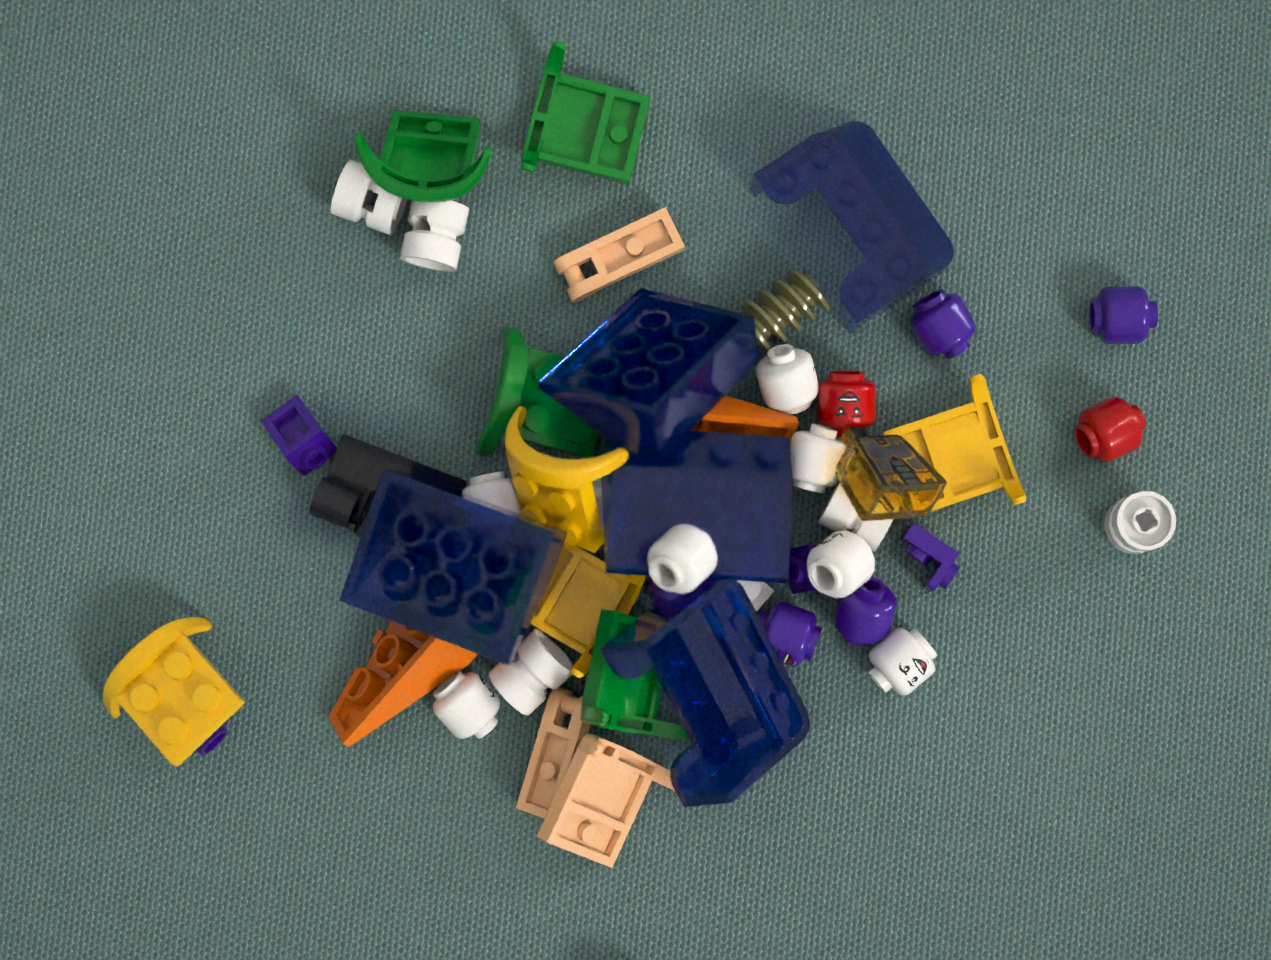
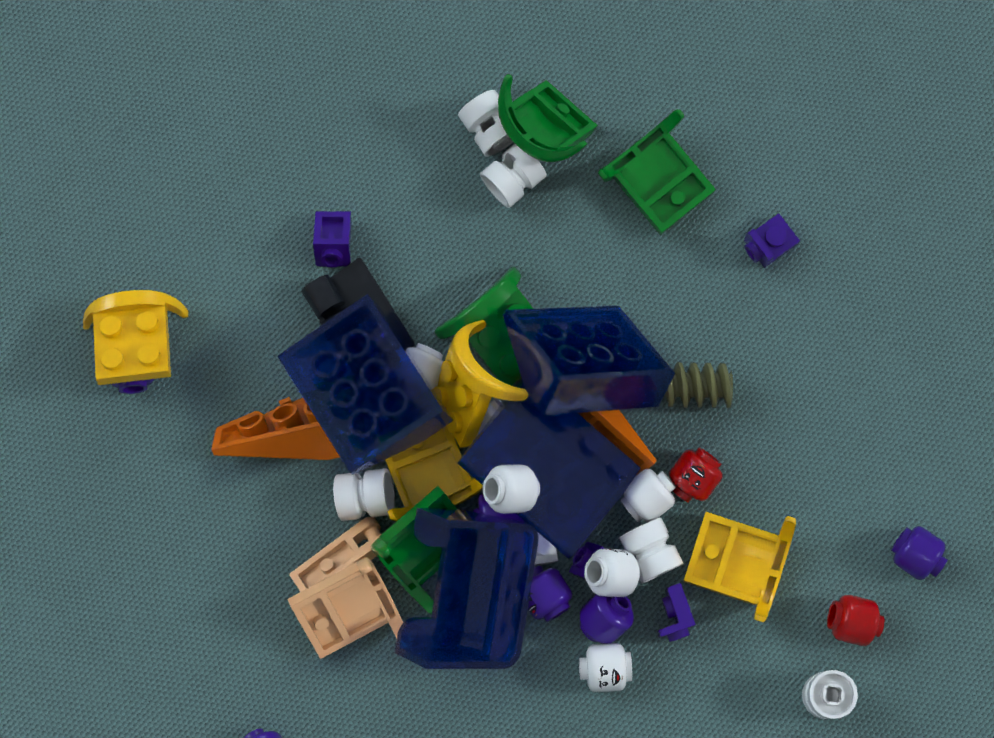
camera: 35 degrees right, 5 degrees down
(466, 705) = (307, 485): white head -> none
(620, 254) = (621, 274): light nougat plate -> none
(743, 108) = (770, 241): none -> dark purple bracket
(787, 379) = (668, 431): white head -> none
(875, 208) = (807, 364): clear blue windscreen -> none
(886, 476) = (684, 539): clear yellow torso -> none
(942, 324) = (796, 471): dark purple head -> none

